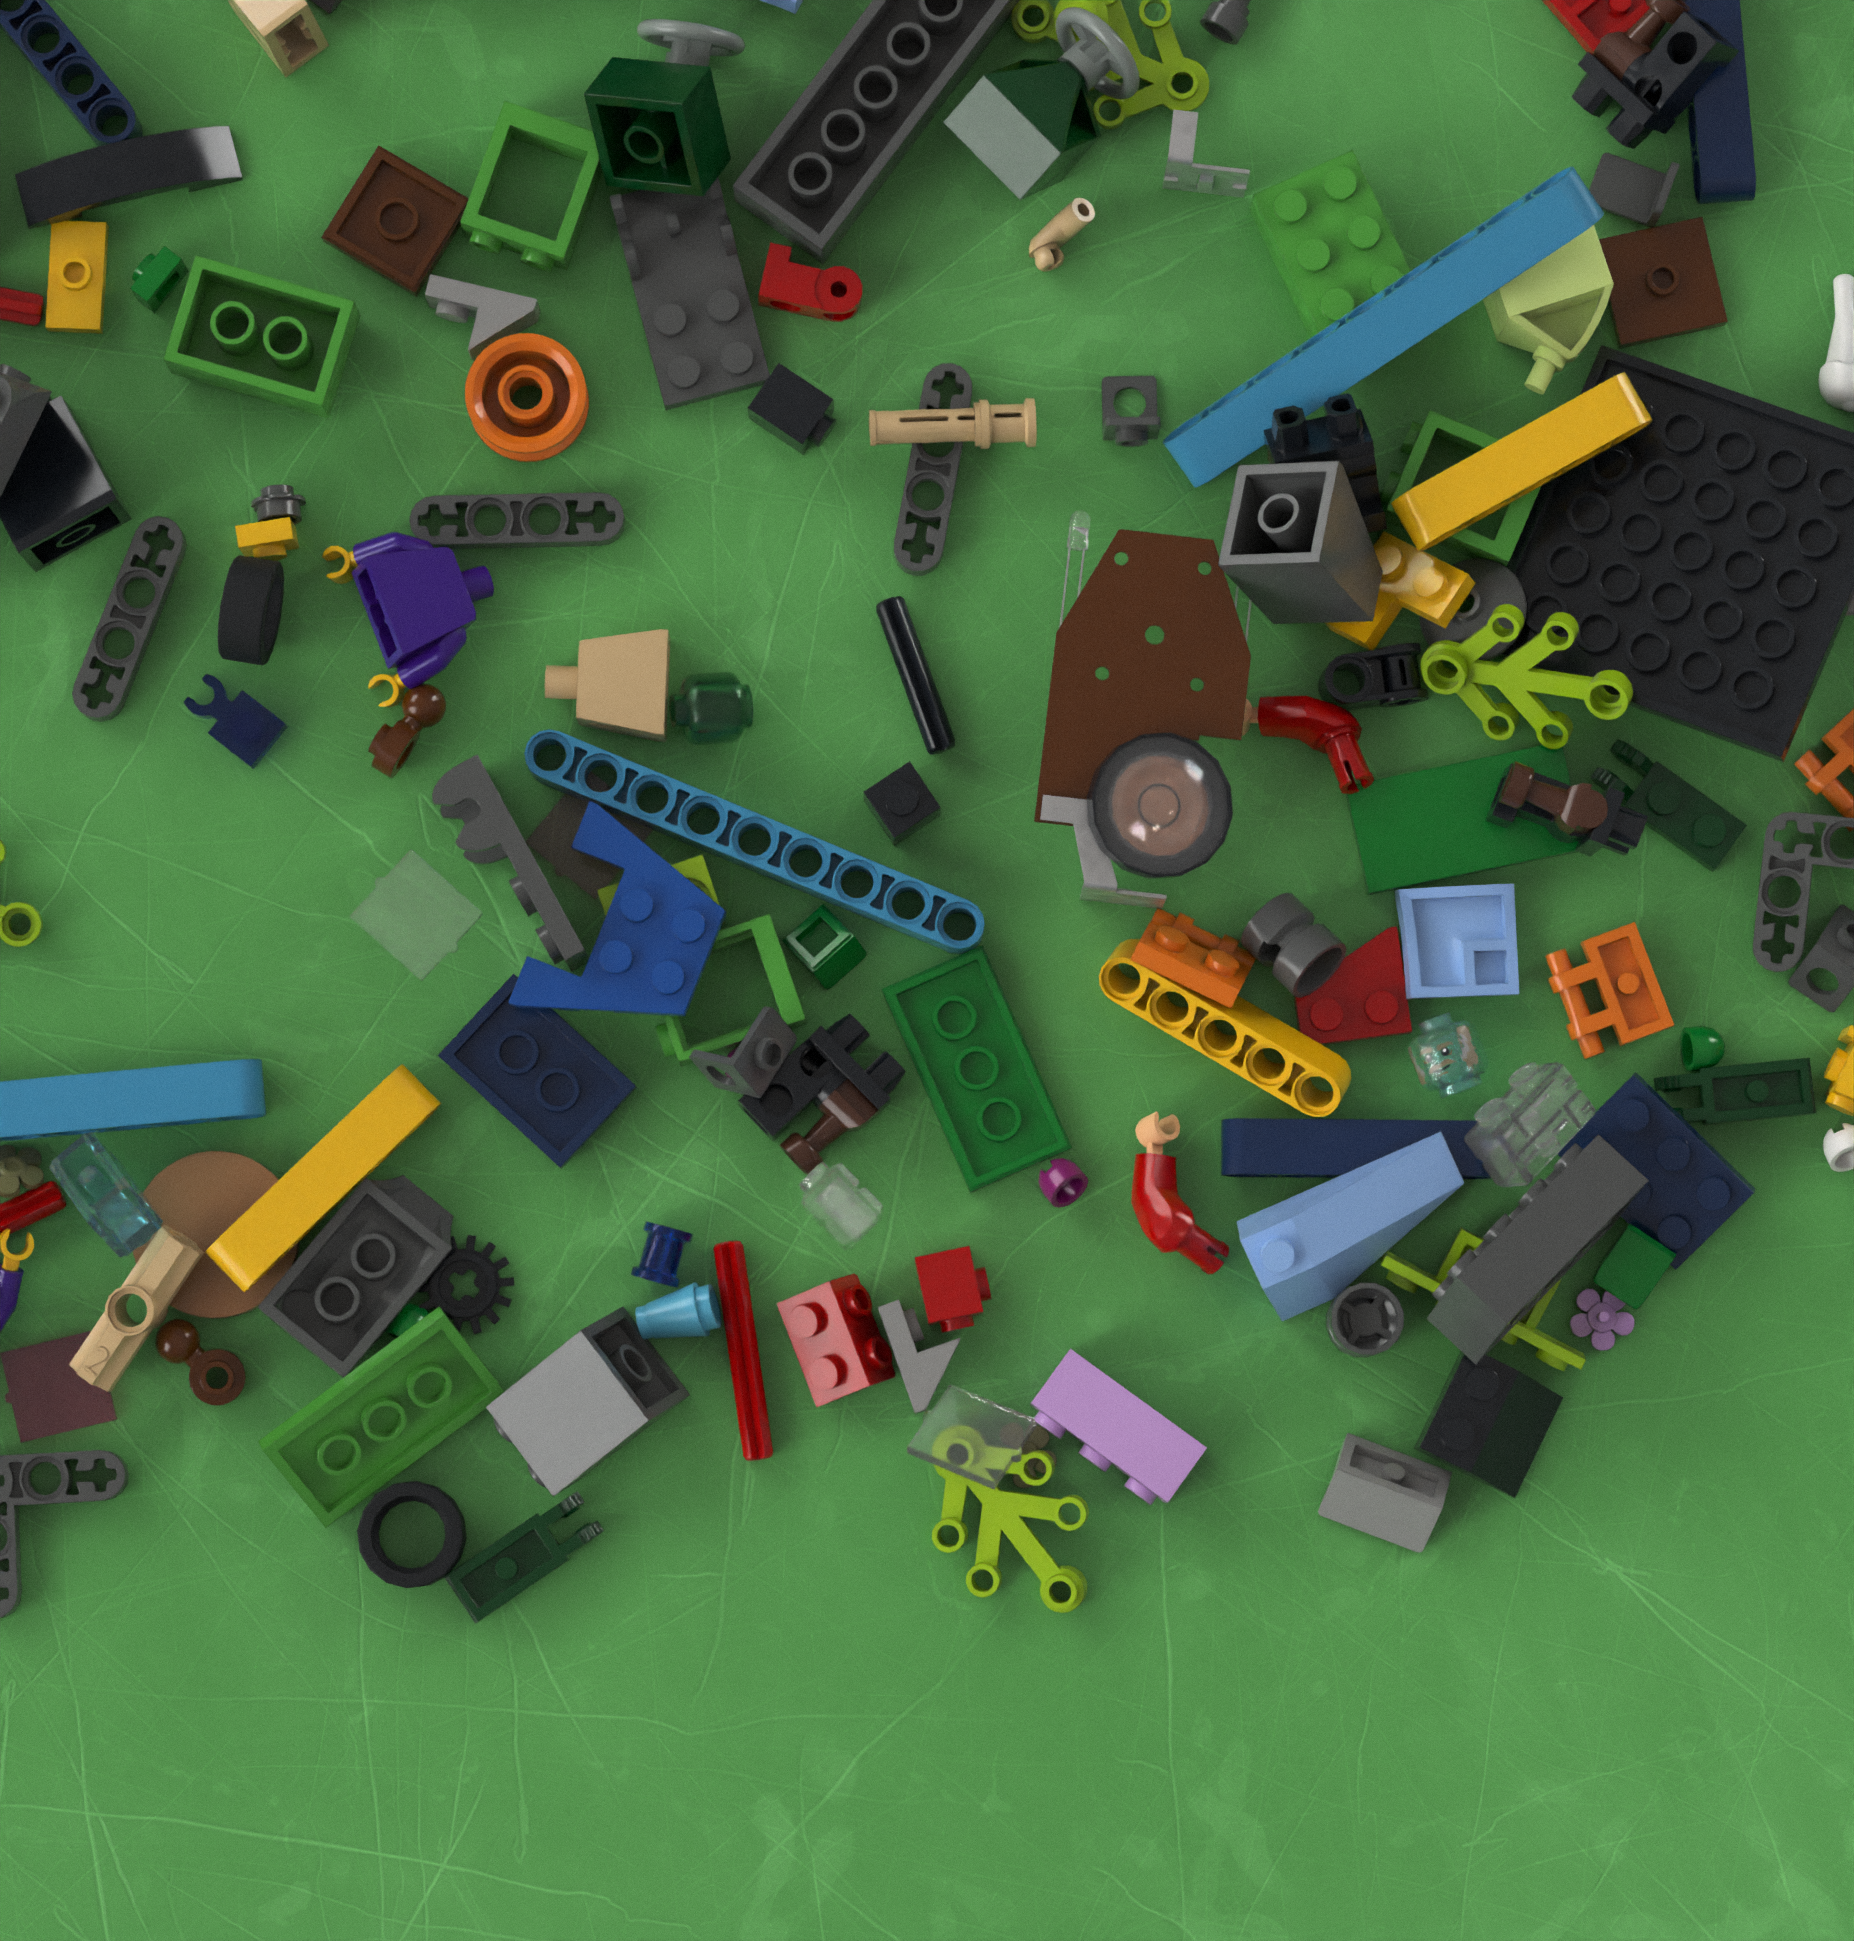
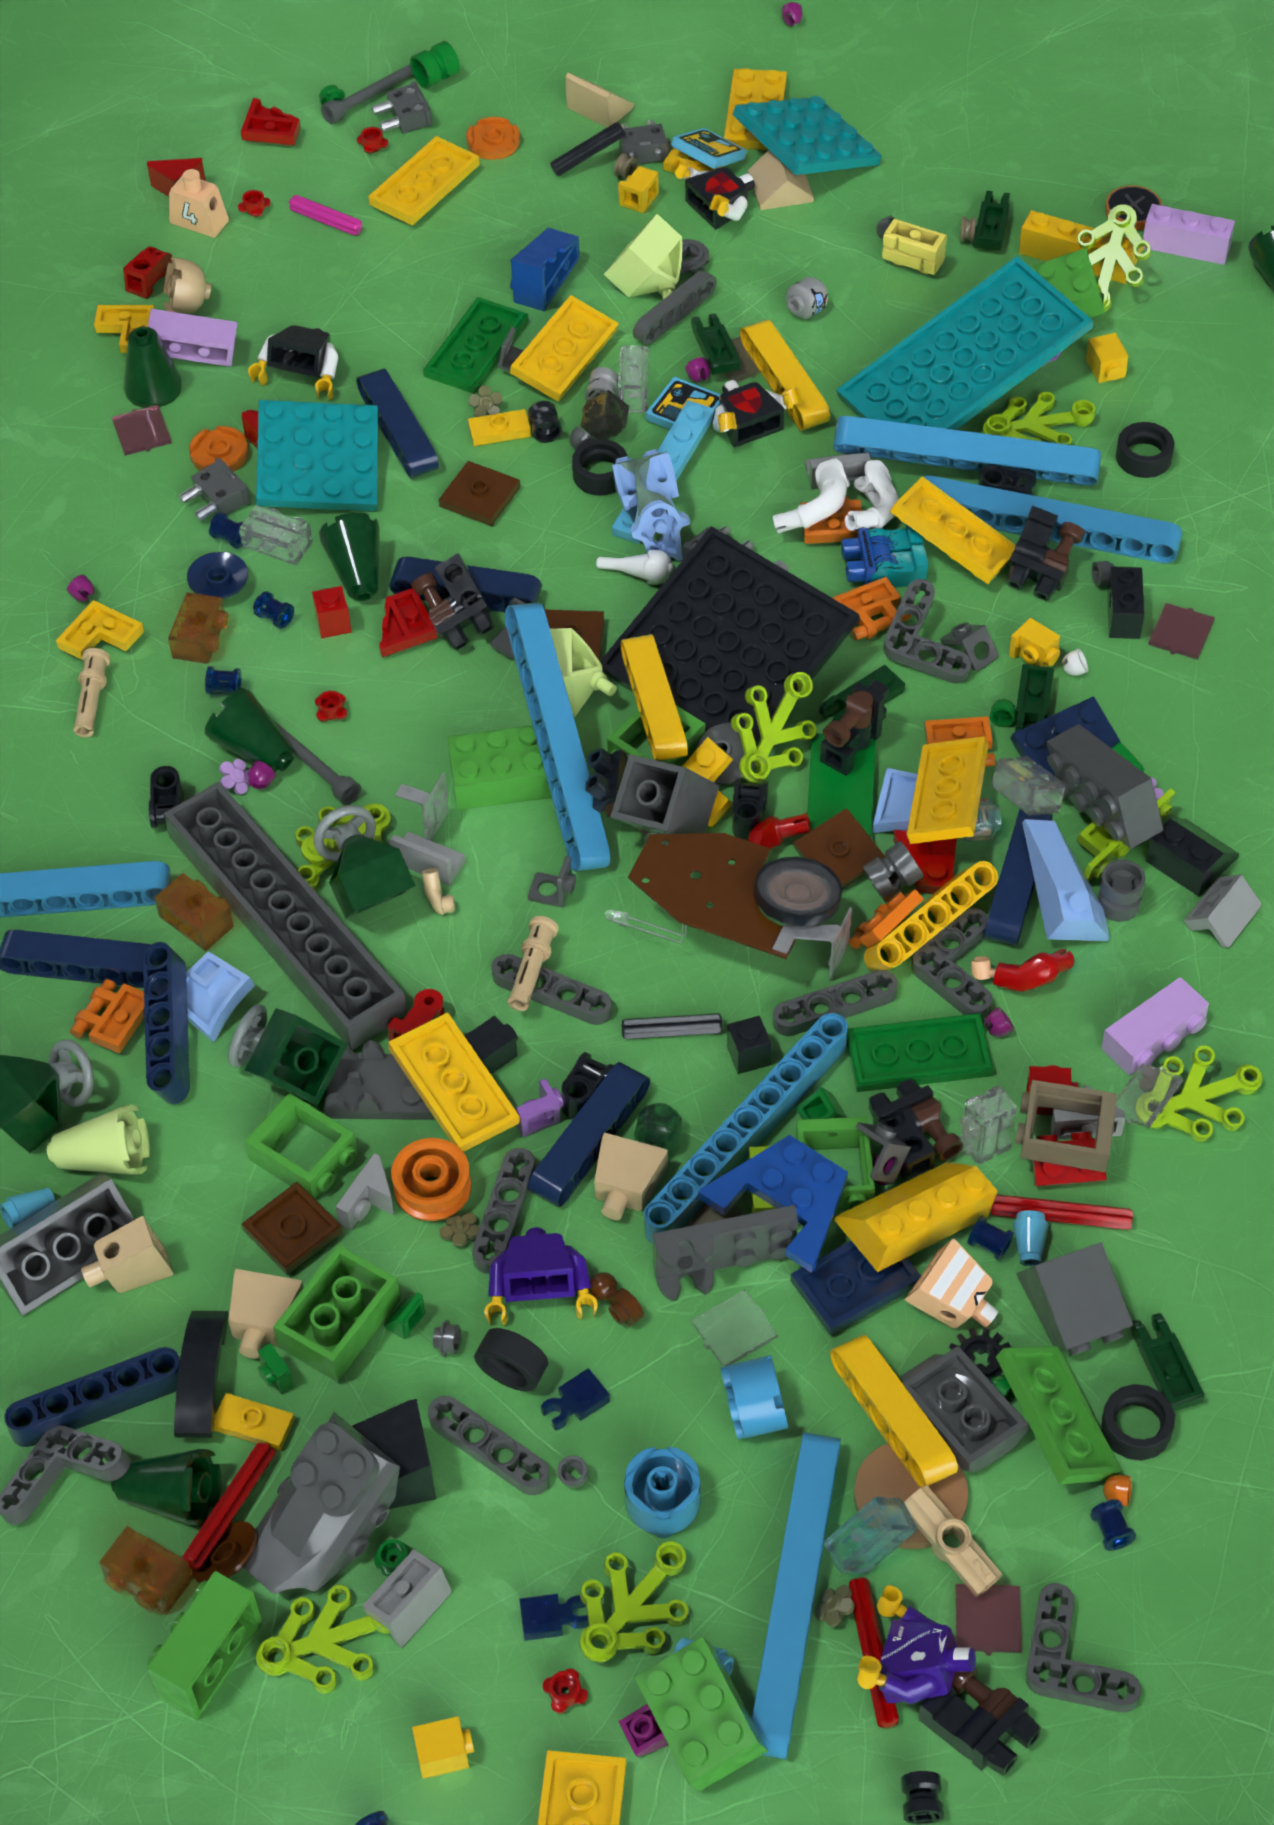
camera: 70 degrees left, 30 degrees down
(102, 853) = (662, 1491): none -> dark azure brick
(106, 747) = (579, 1465): none -> dark grey hinge
(180, 1343) = (997, 1520): reddish brown plate -> none
(236, 1531) = (1113, 1525): none -> clear blue bush
(246, 224) = (256, 1307): none -> tan torso
(267, 538) = (465, 1346): yellow plate -> none
(286, 975) = (754, 1397): none -> dark azure brick
(297, 1528) = (1118, 1488): none -> orange hinge
(300, 433) = (406, 1316): none -> green slope
(470, 466) = (460, 1229): none -> olive plant
(548, 1218) = (953, 1288): none -> light nougat torso
(666, 1131) = (918, 1213): none -> yellow slope
(681, 605) = (581, 1141): none -> dark blue beam
(689, 517) = (541, 1112): none -> medium lavender bracket
(693, 376) = (453, 1082): none -> yellow plate
(768, 576) = (582, 1083): none -> black piece
(827, 1266) = (1069, 1099): none -> dark tan window
(1034, 913) = (832, 998): none -> dark grey beam
(1131, 196) = (426, 854): none -> light grey panel
(1166, 1067) = (945, 966): none -> dark grey beam
(1322, 848) = (840, 846): none -> reddish brown plate
(1468, 995) = (947, 790): none -> yellow plate

